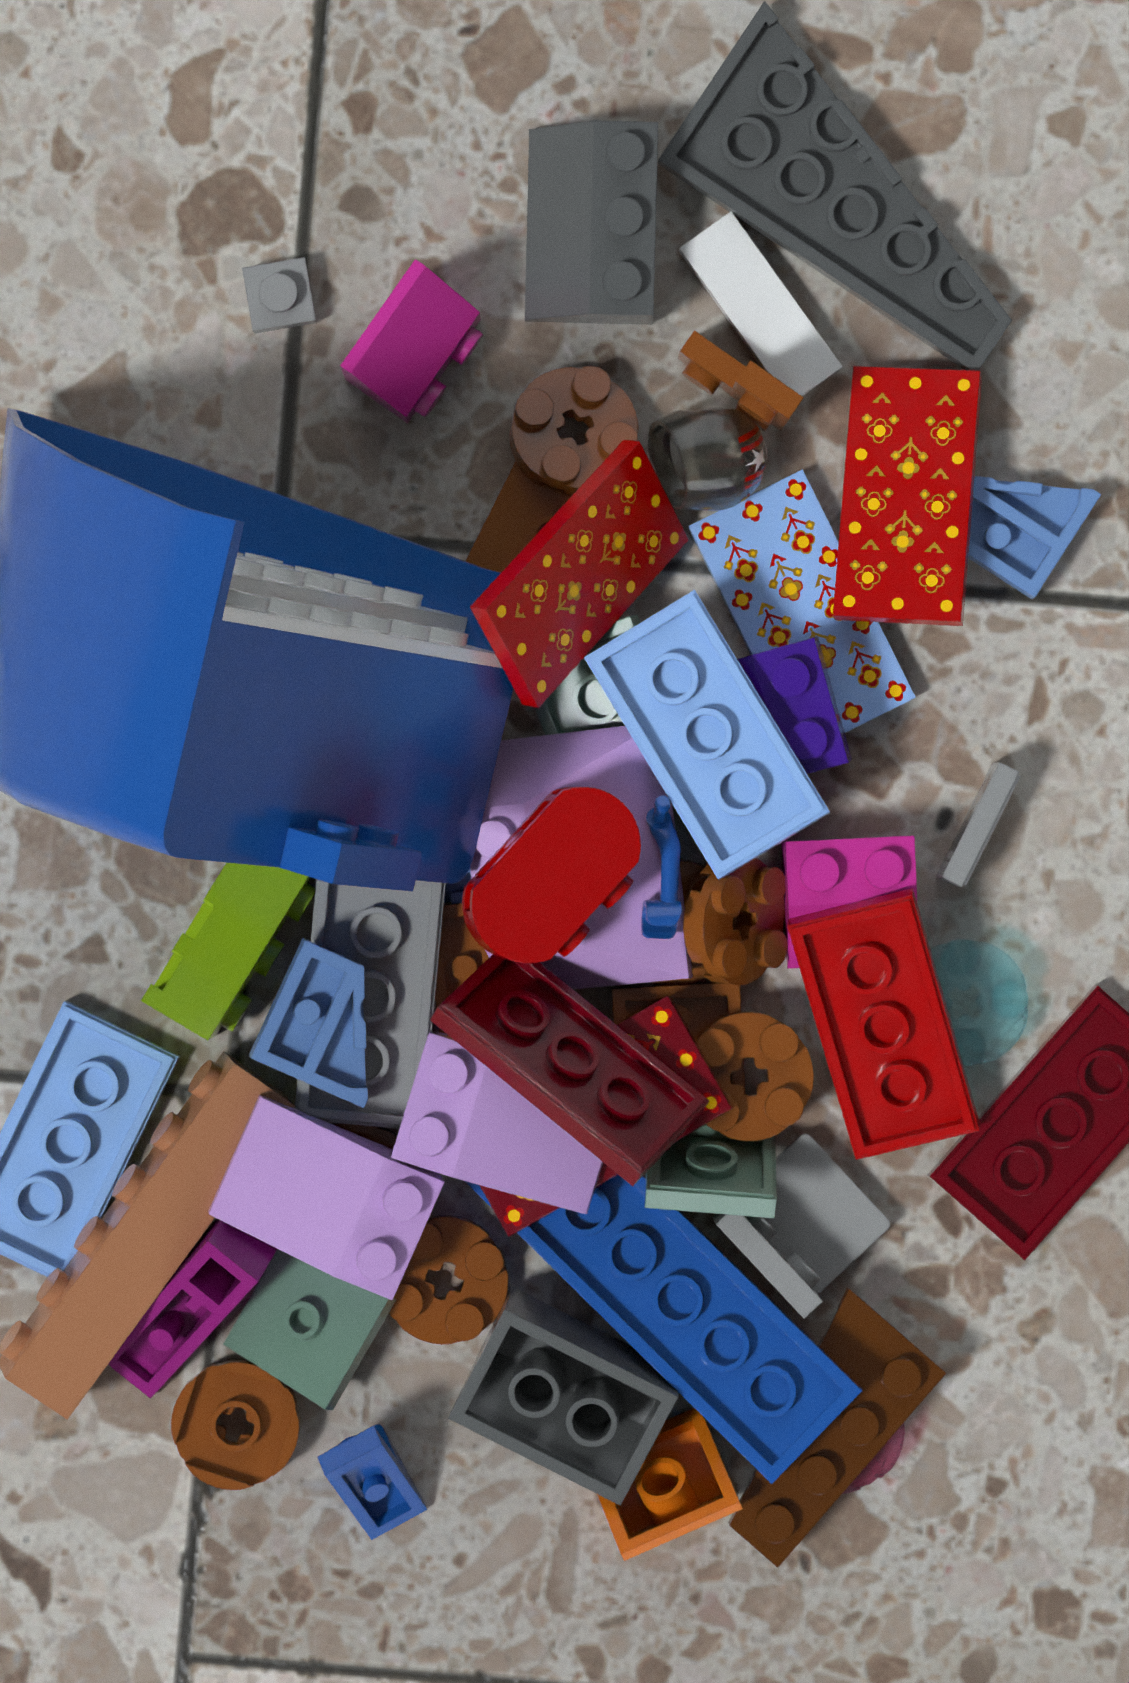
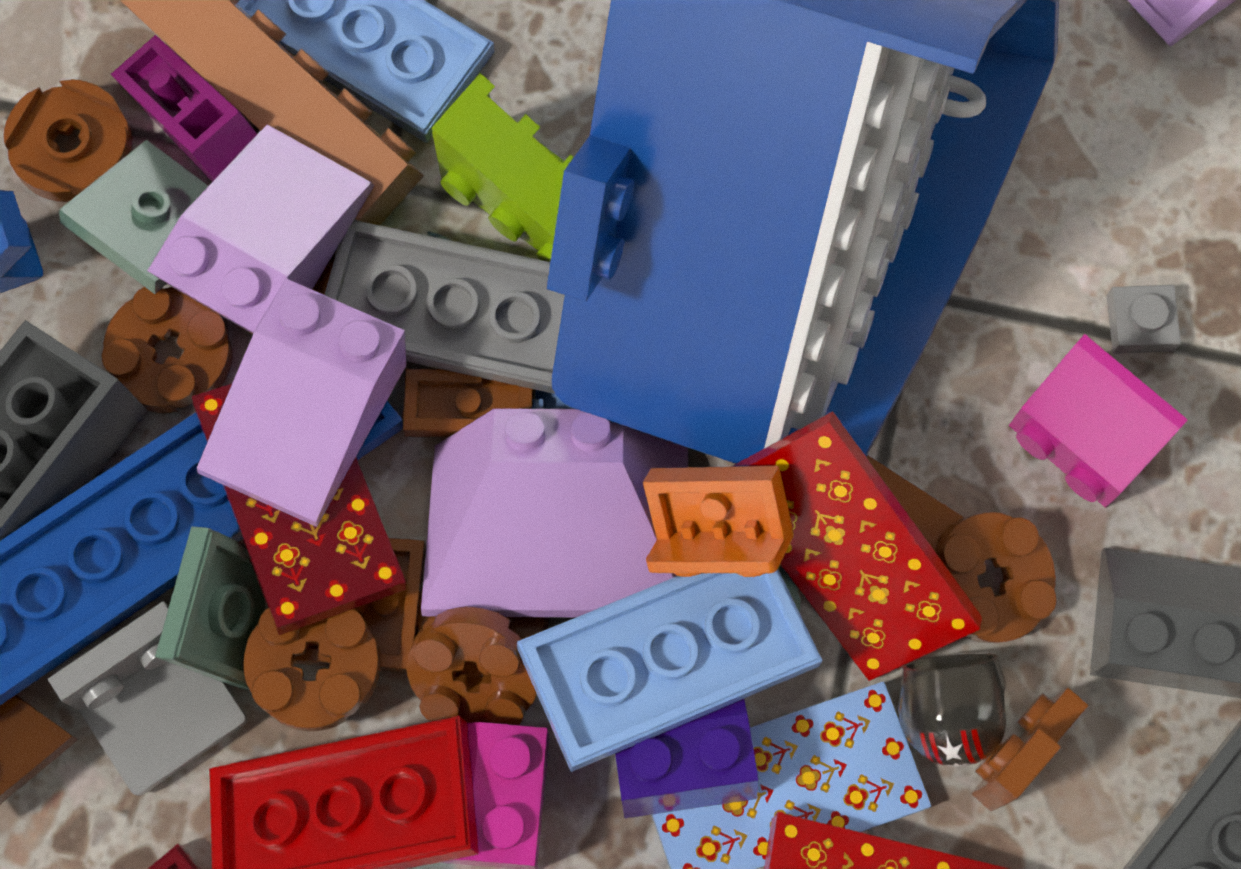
camera: 100 degrees right, 15 degrees down
(318, 1024) = (431, 244): medium blue wing -> none
(553, 876) = (543, 472): red brick -> none
(571, 1063) = (349, 466): dark red tile -> none
(581, 704) = (717, 520): none -> orange bracket
(661, 916) = (488, 587): blue piece -> none
(759, 306) = (1101, 786): white tile -> none

